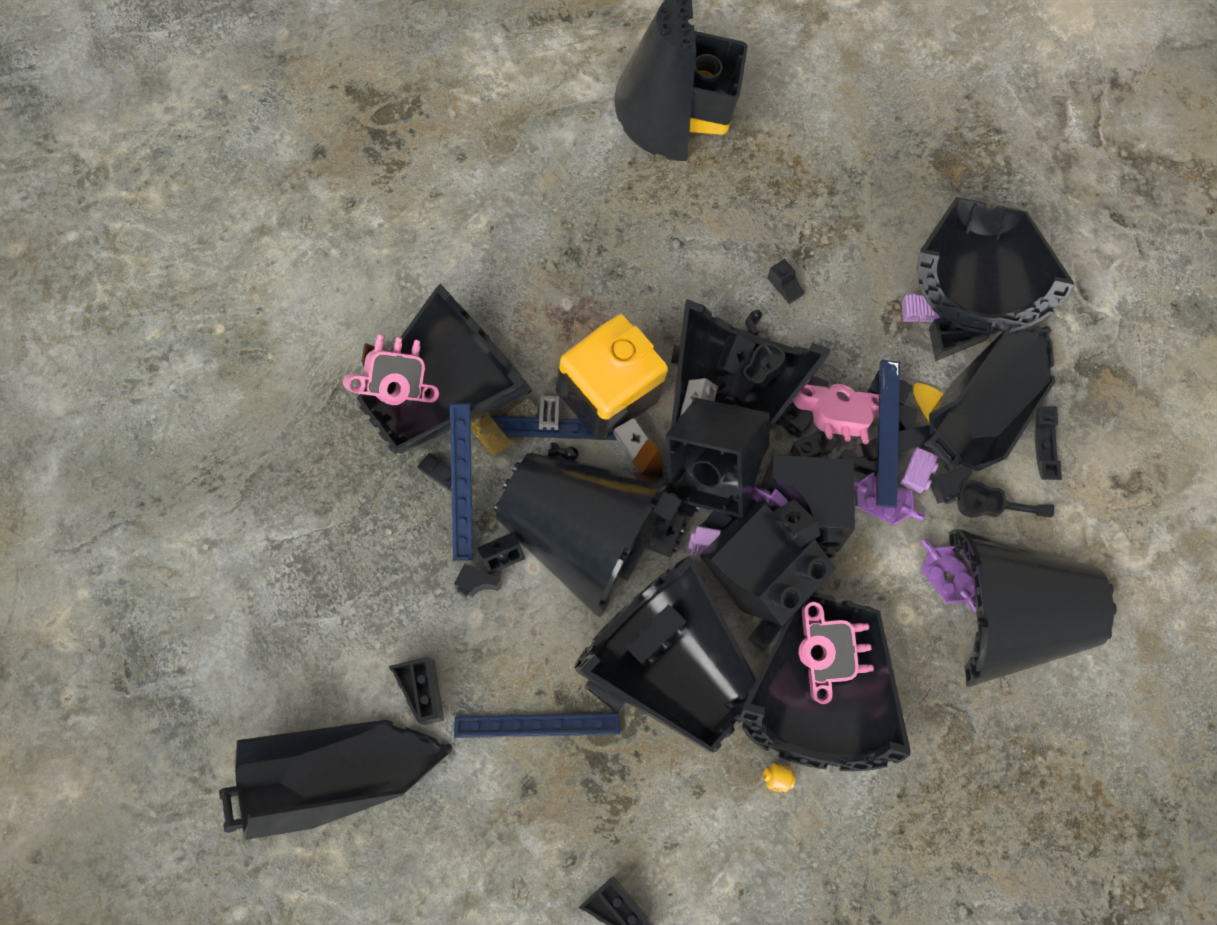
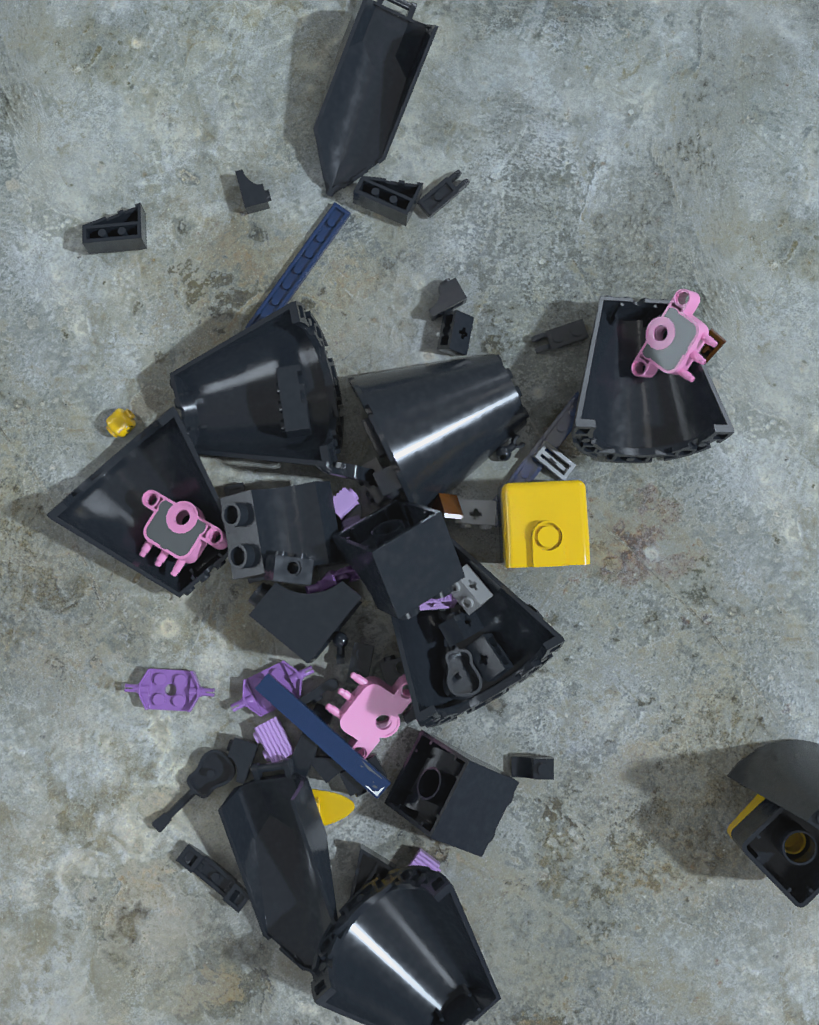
camera: 135 degrees right, 15 degrees up
(385, 649) = (442, 194): none -> black hinge
(461, 481) = (536, 334): dark blue tile -> none
(490, 435) = (563, 394): clear yellow panel -> none
(499, 813) = (253, 195): none -> black arch
(679, 544) = (346, 470): none -> black piece
(751, 321) = (517, 706): black arm -> none
(854, 317) = (451, 794): none -> black brick
(1031, 606) = (99, 735): black cone -> none

